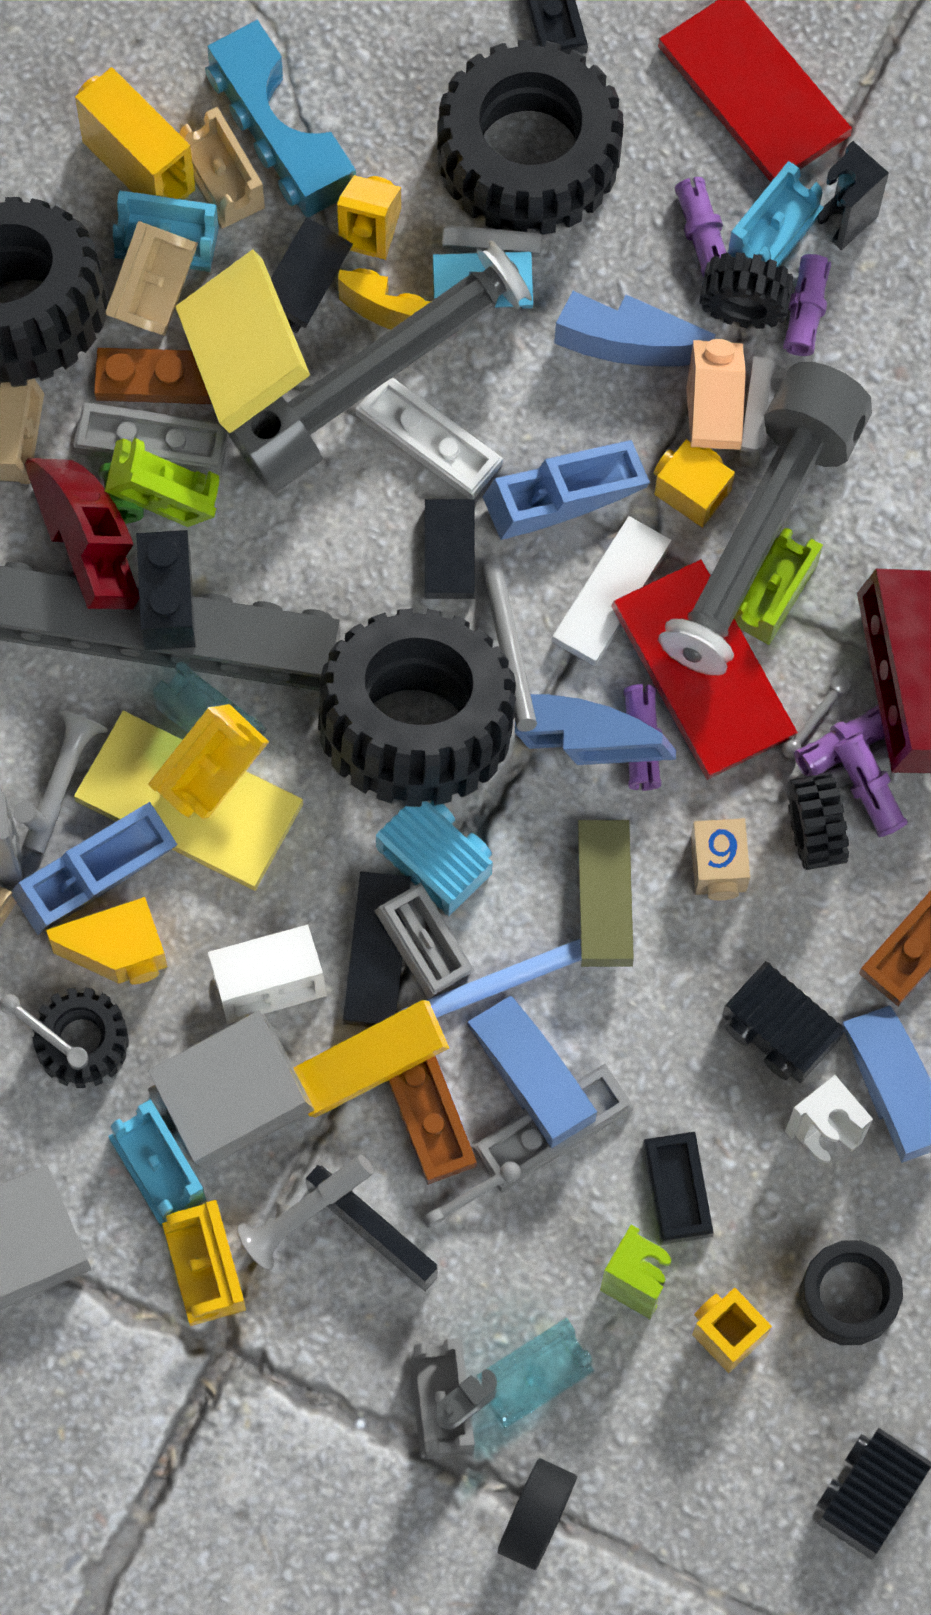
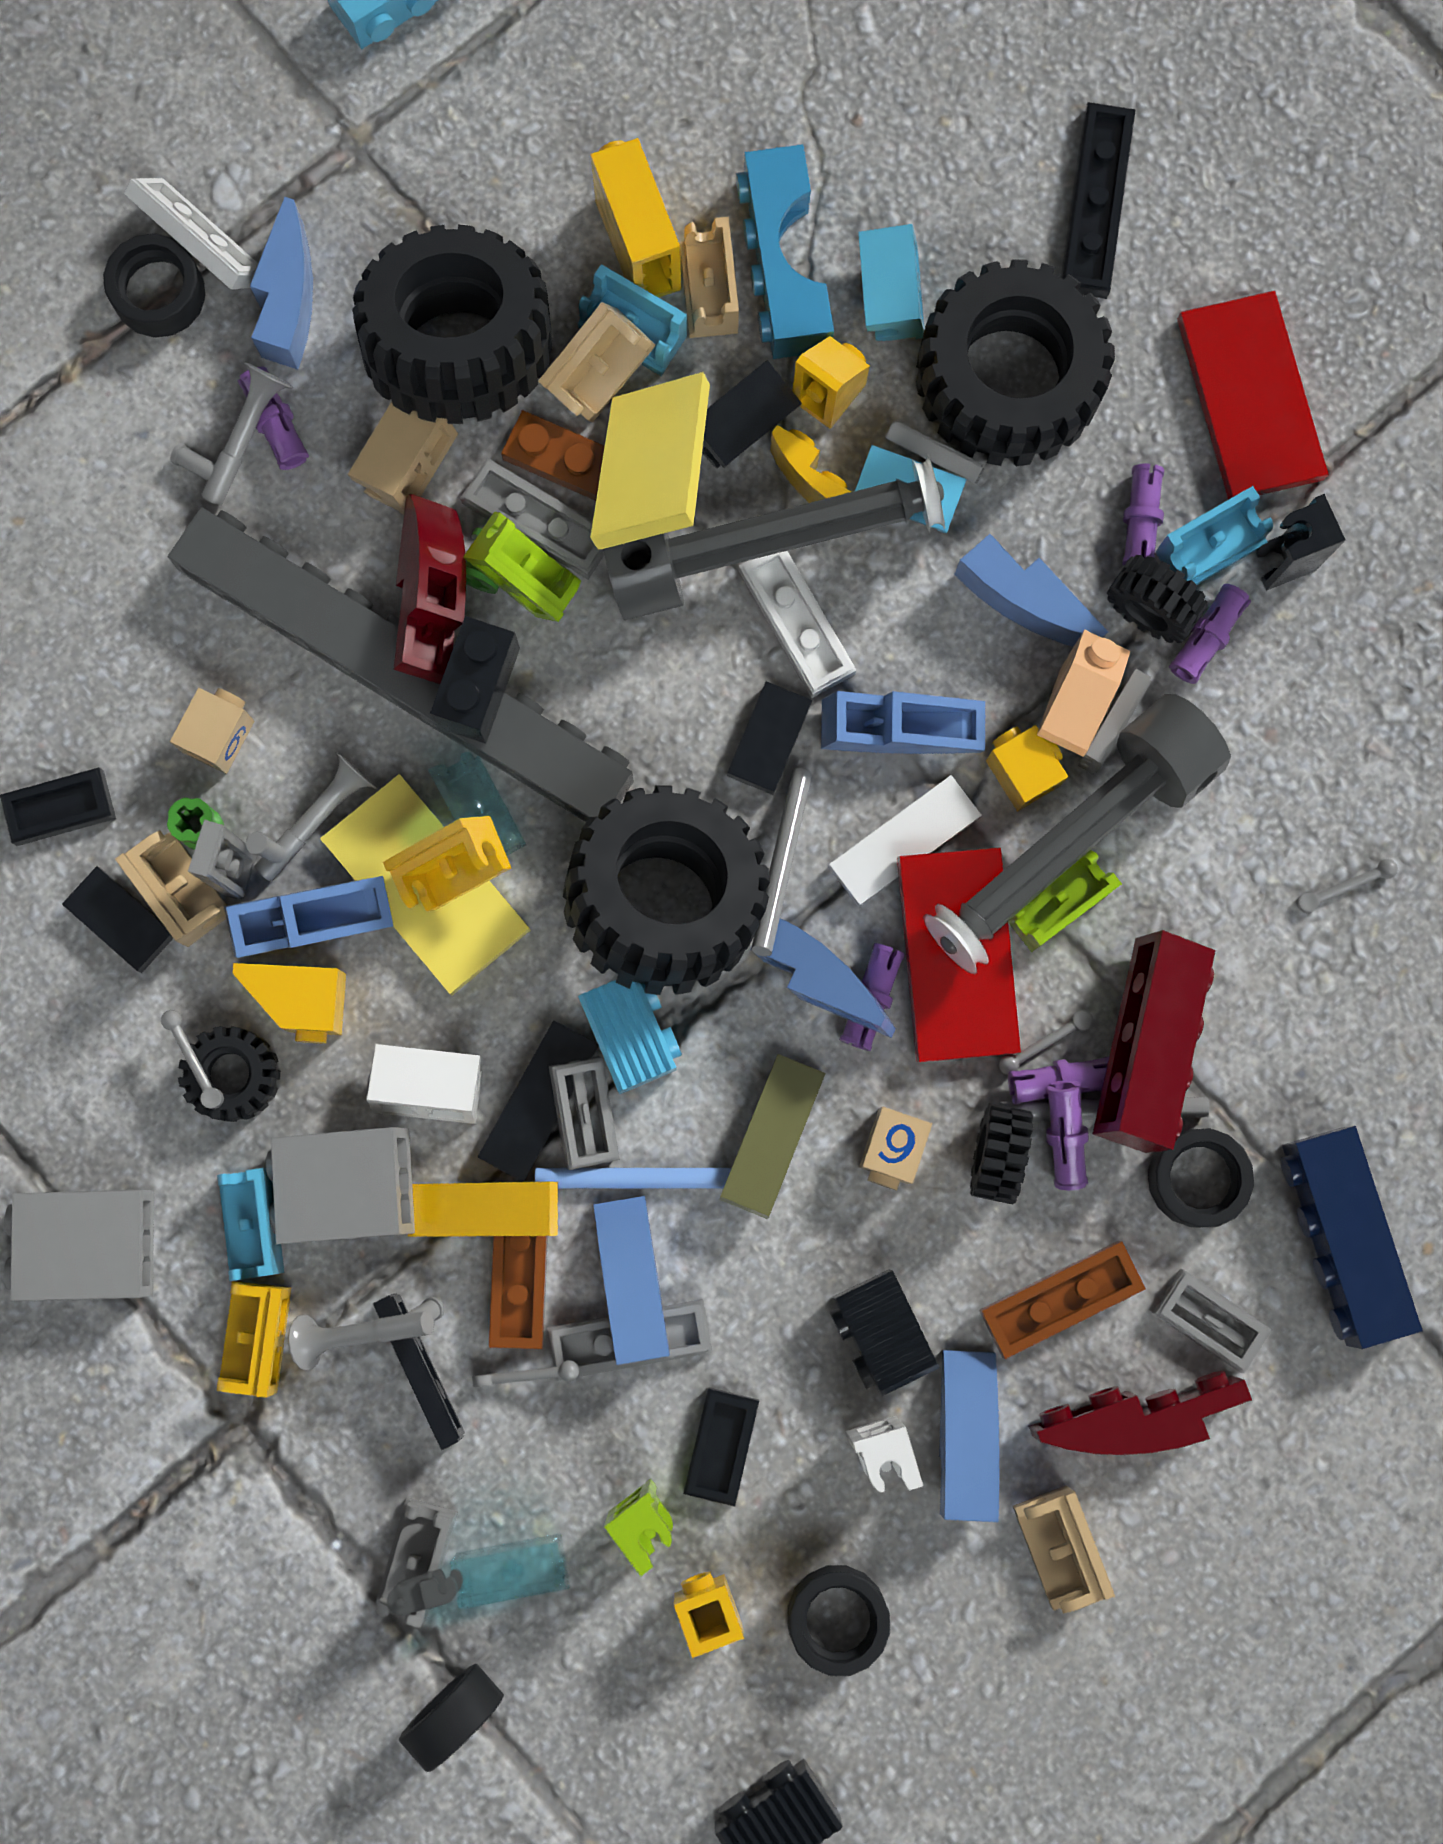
camera: 20 degrees right, 10 degrees up
(388, 110) = (891, 283): none -> medium azure hinge

